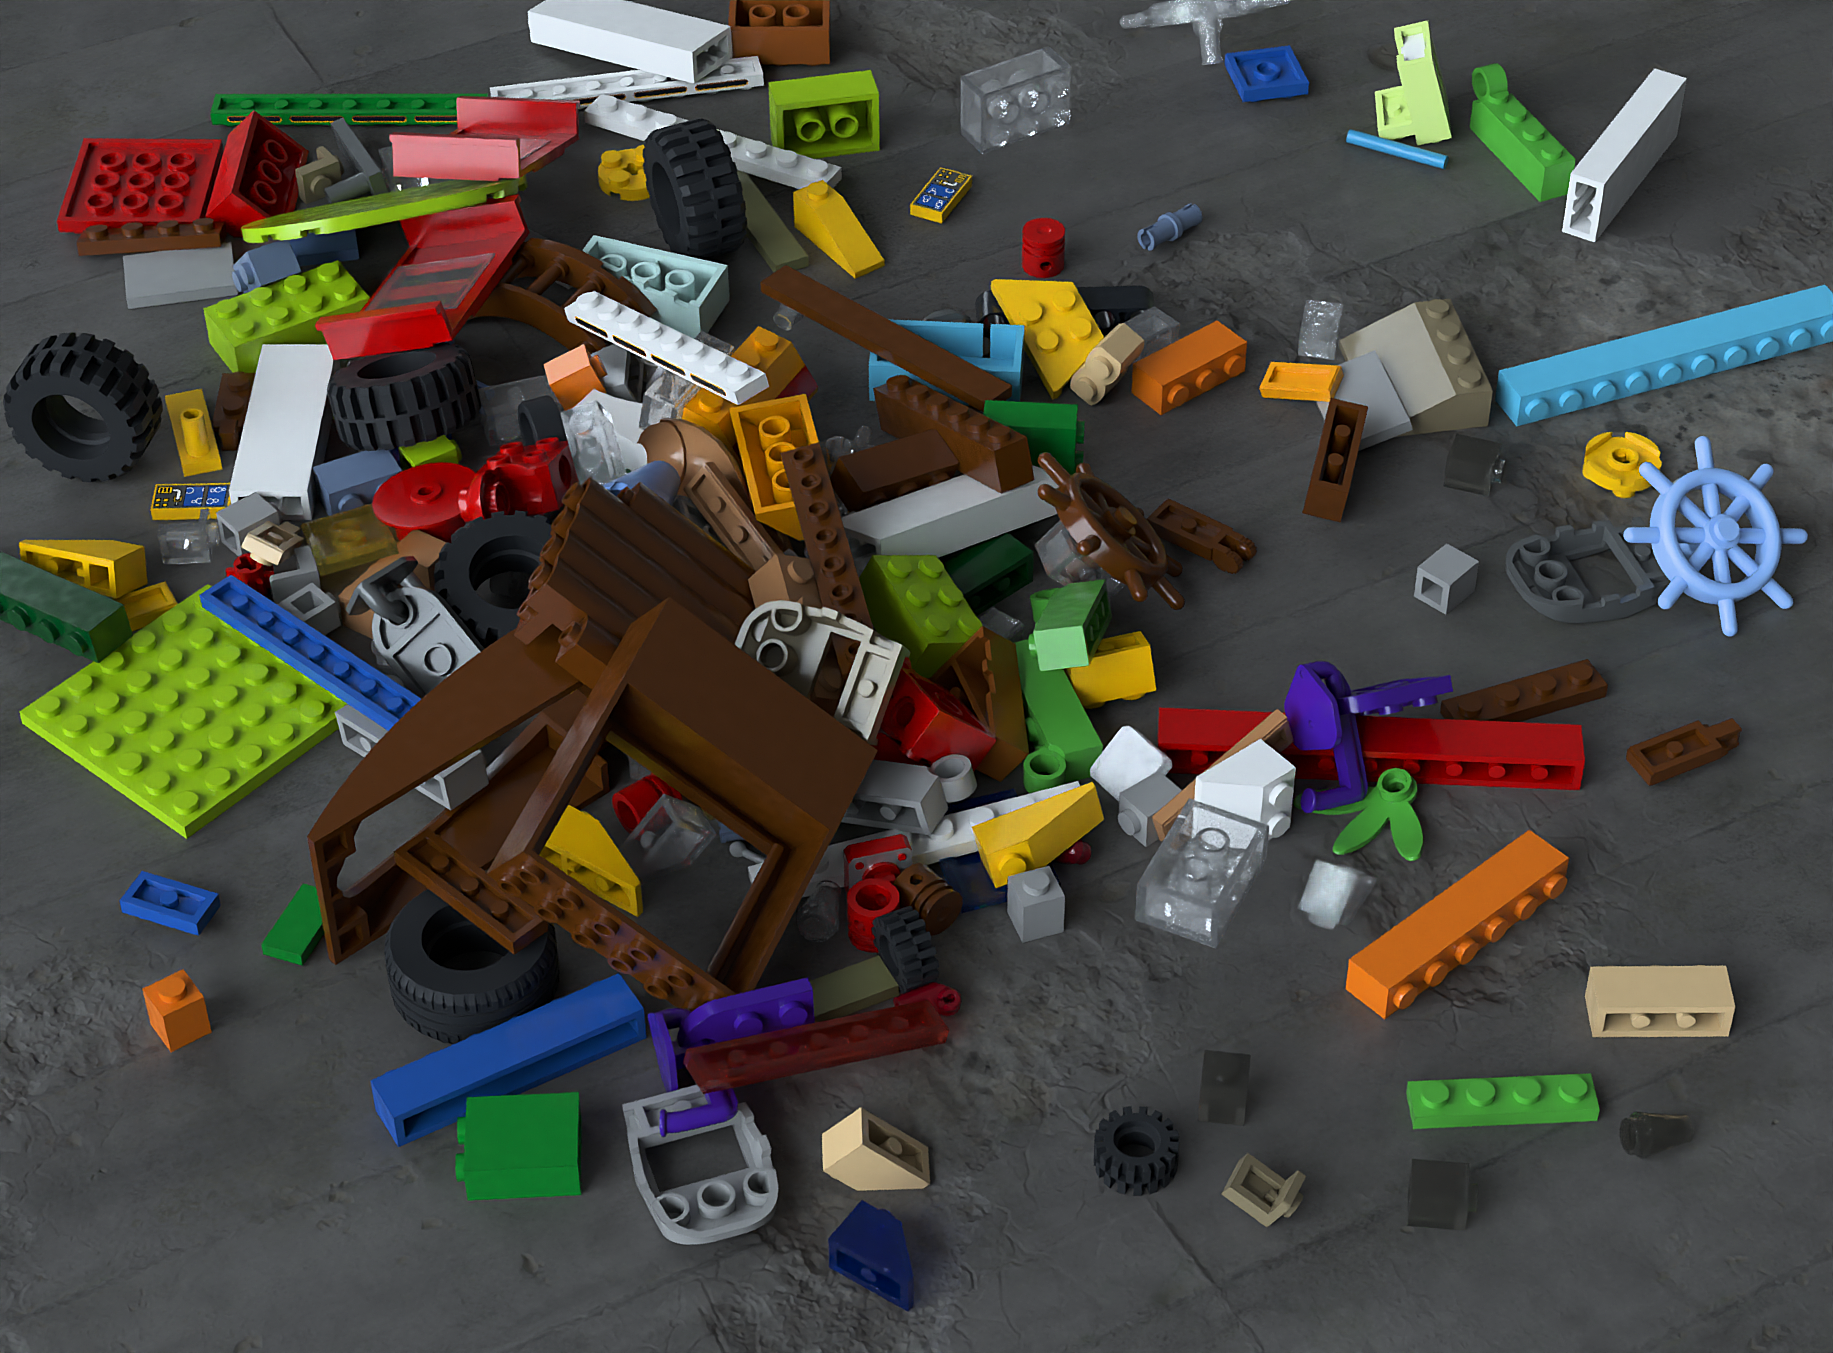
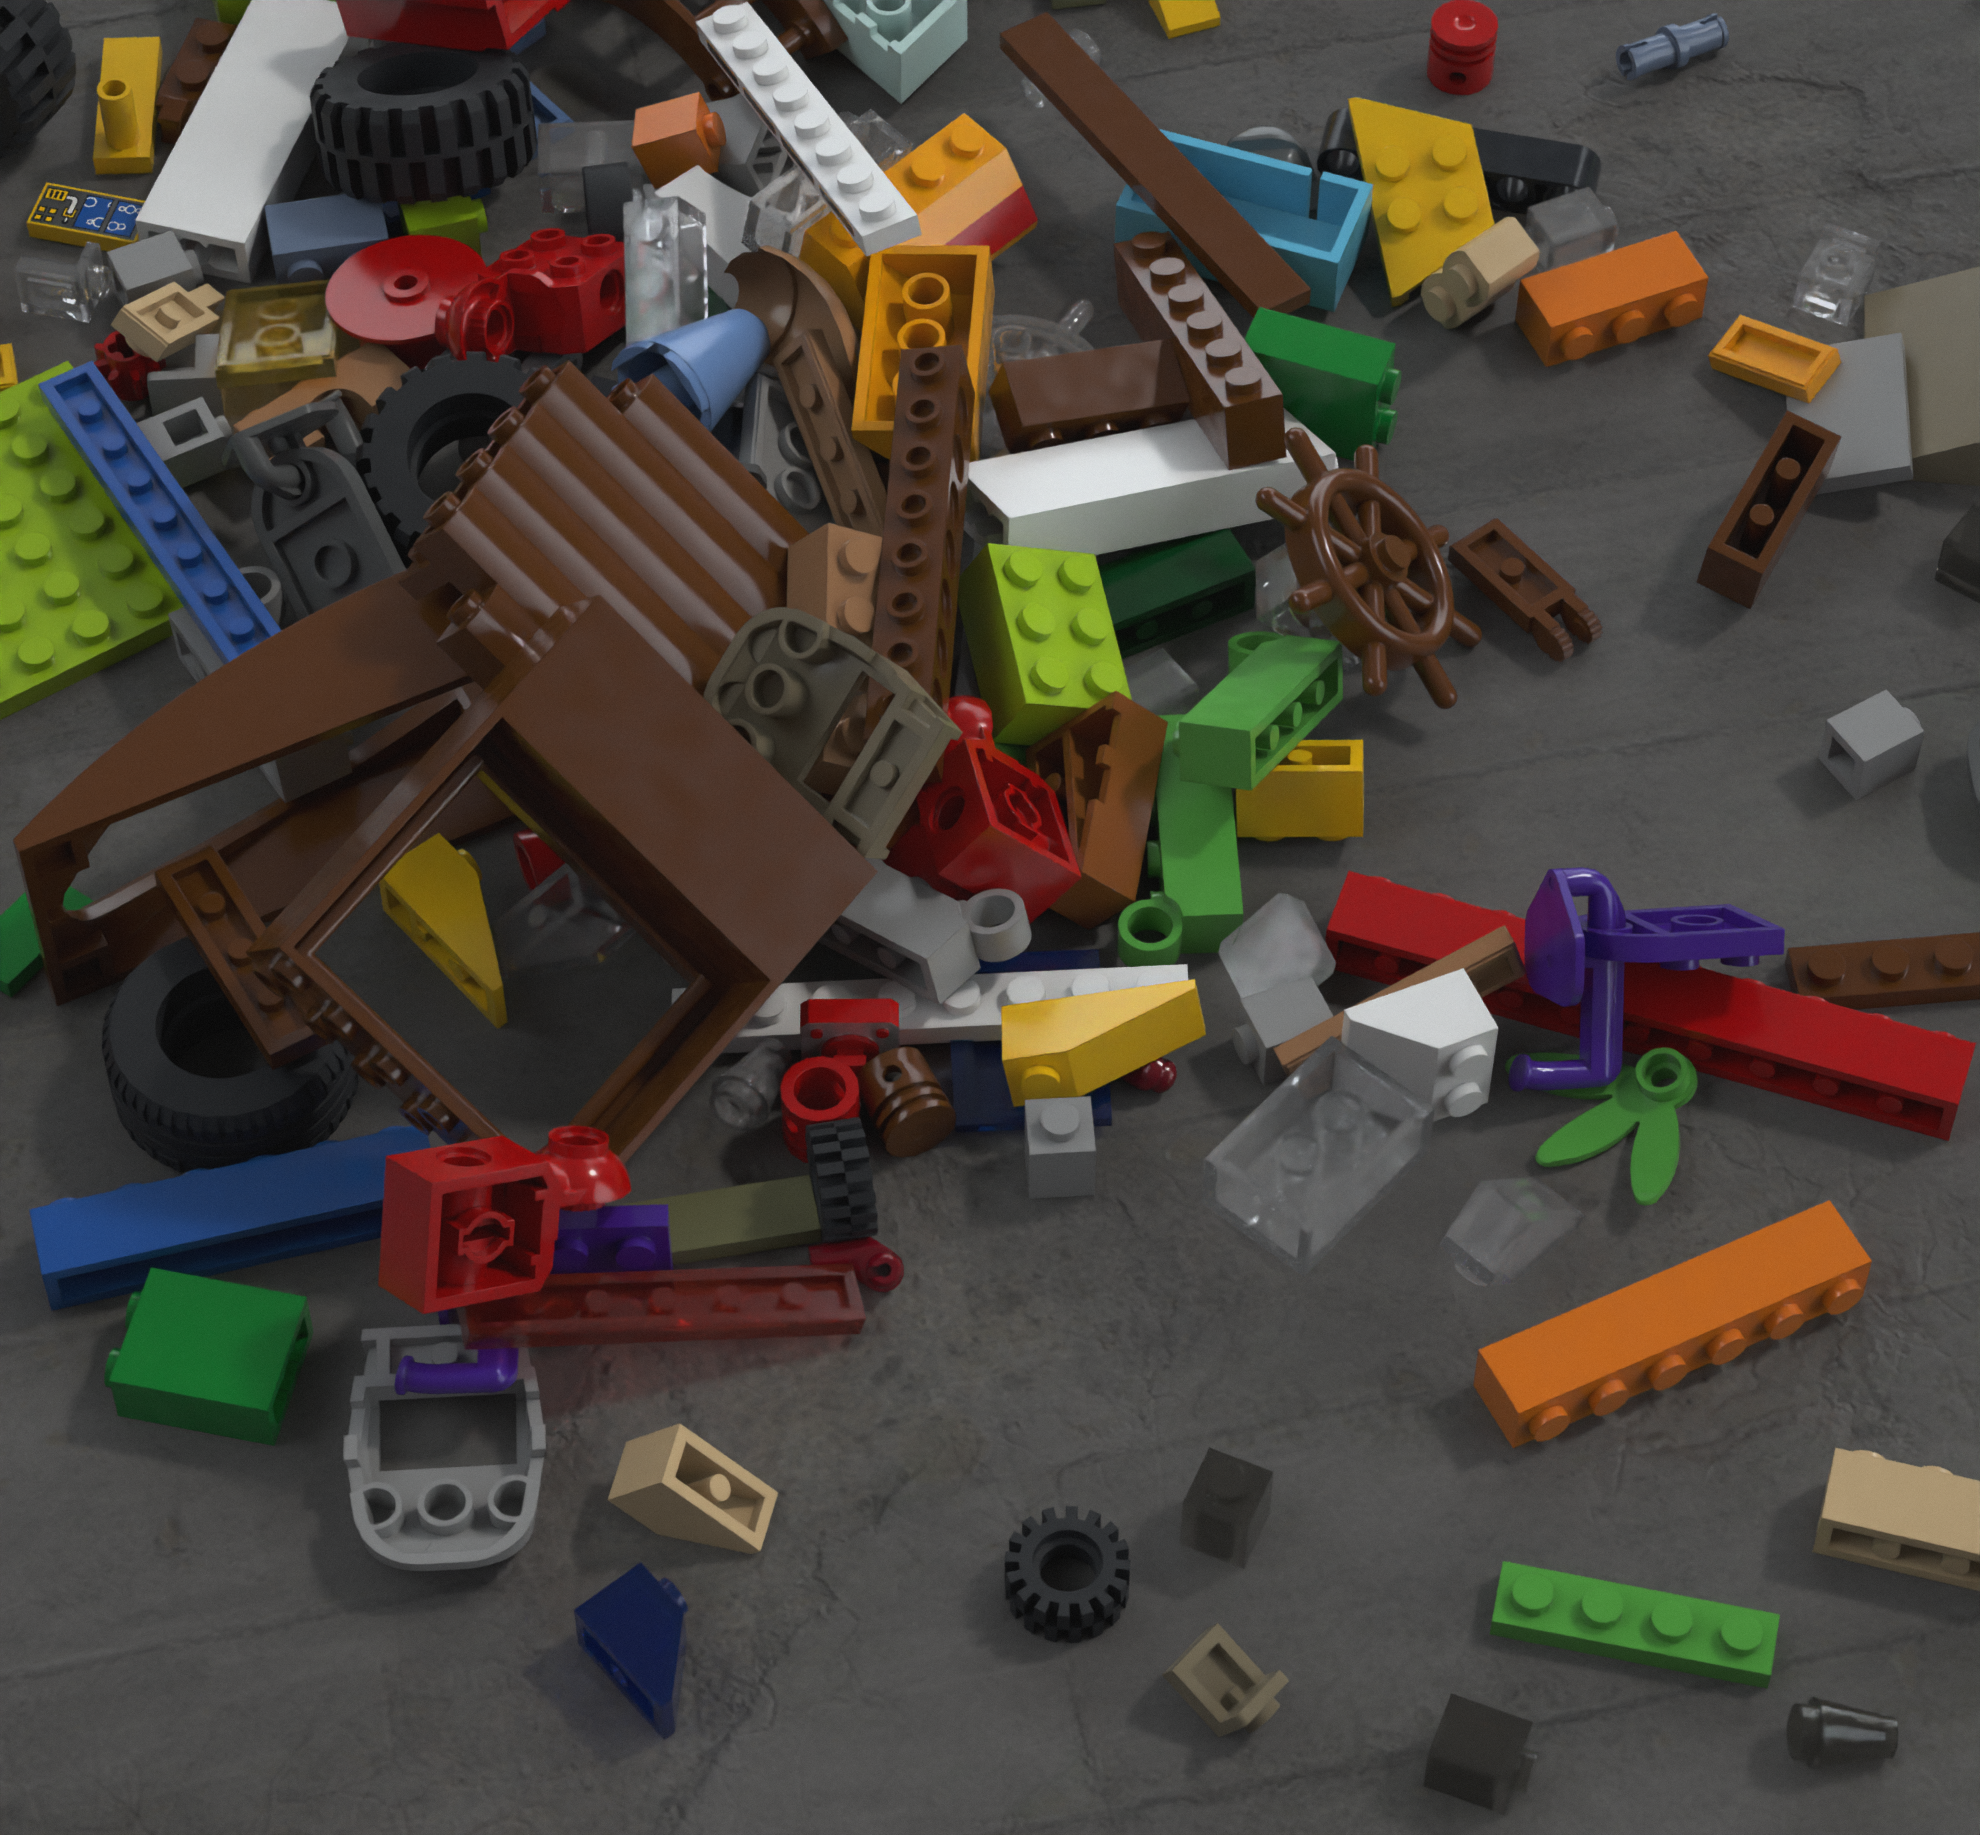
camera: 15 degrees right, 10 degrees up
(698, 1000) = (485, 1214): none -> red brick

